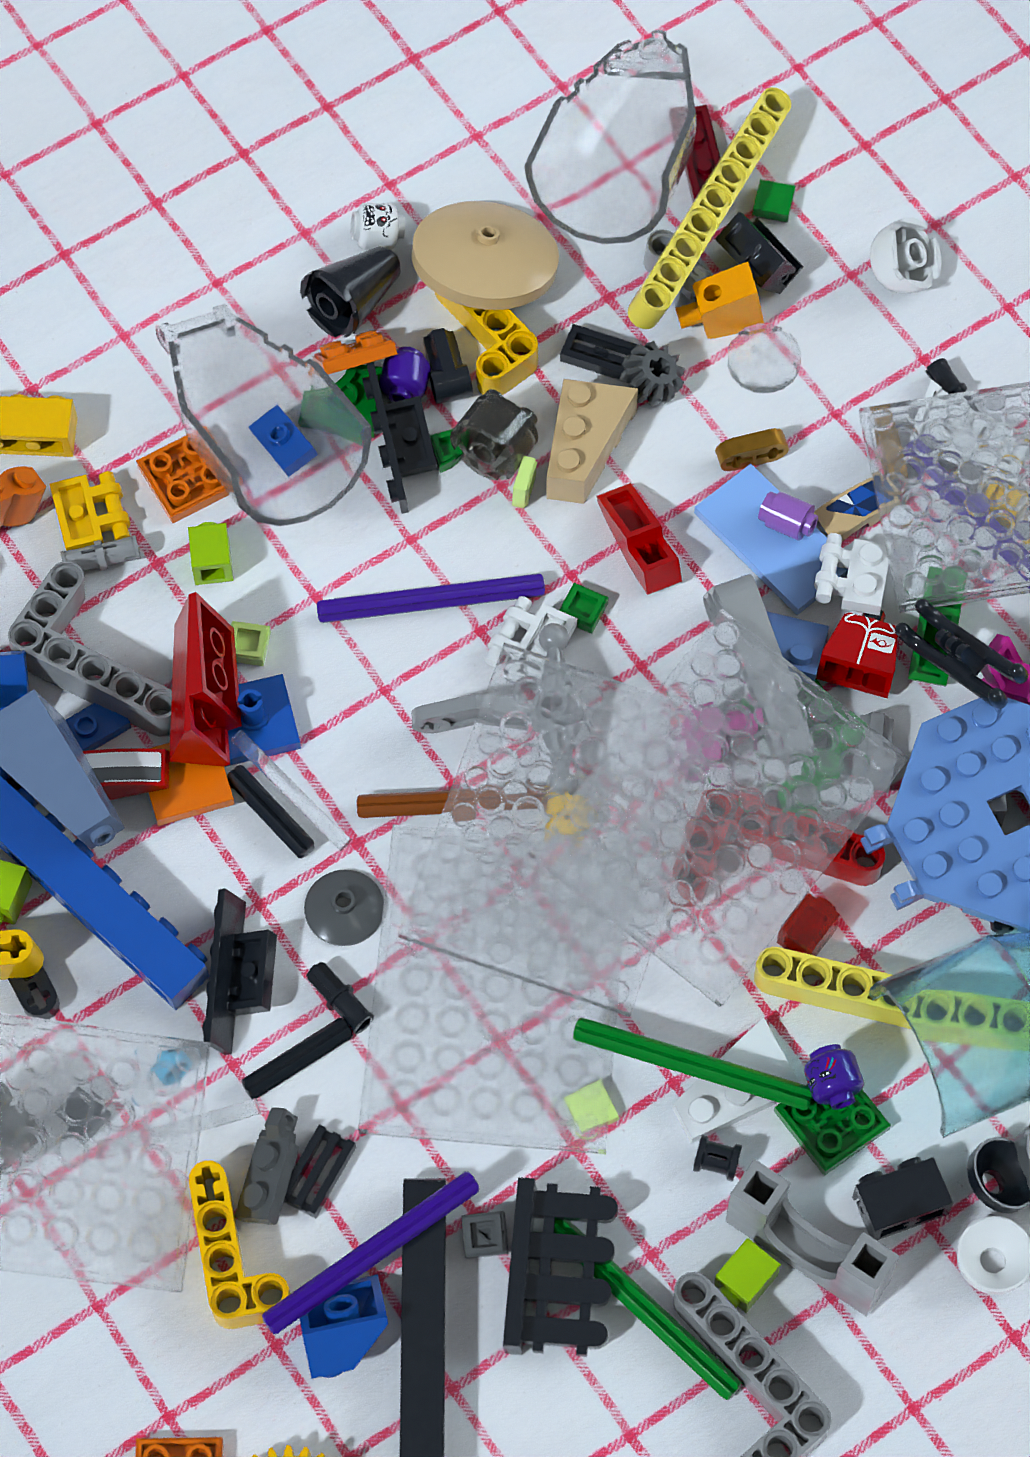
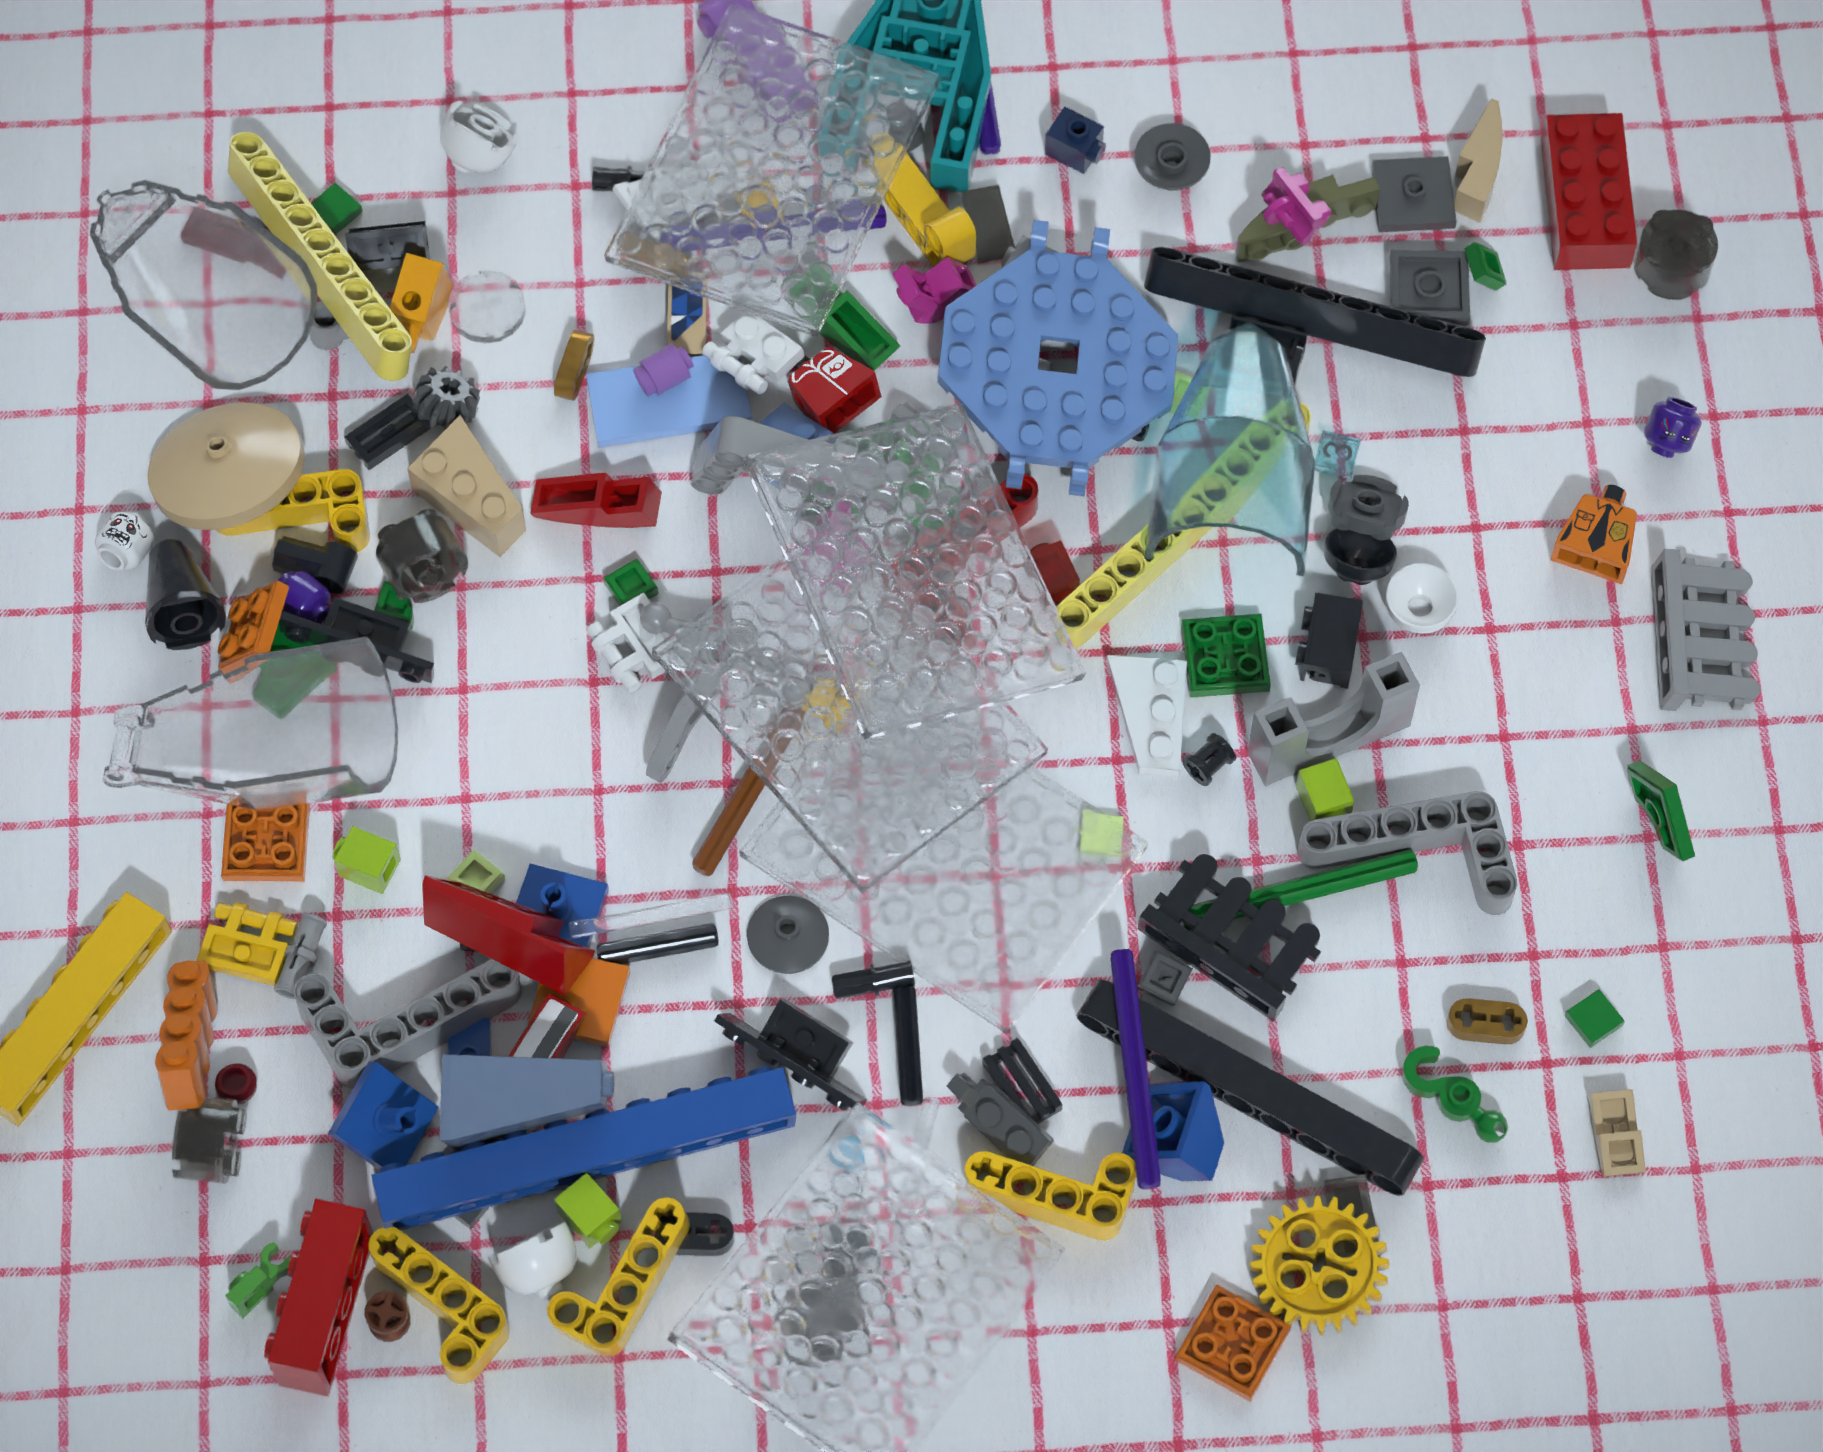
camera: 60 degrees left, 0 degrees up
(283, 440) = (297, 735): blue plate -> none
(430, 598) = (536, 703): dark purple axle -> none
(524, 482) = (480, 562): yellowish green tile -> none
(692, 1063) = (1119, 728): green axle -> none
(833, 1076) = (1203, 624): dark purple head -> none
(964, 656) = (900, 308): black piece -> none

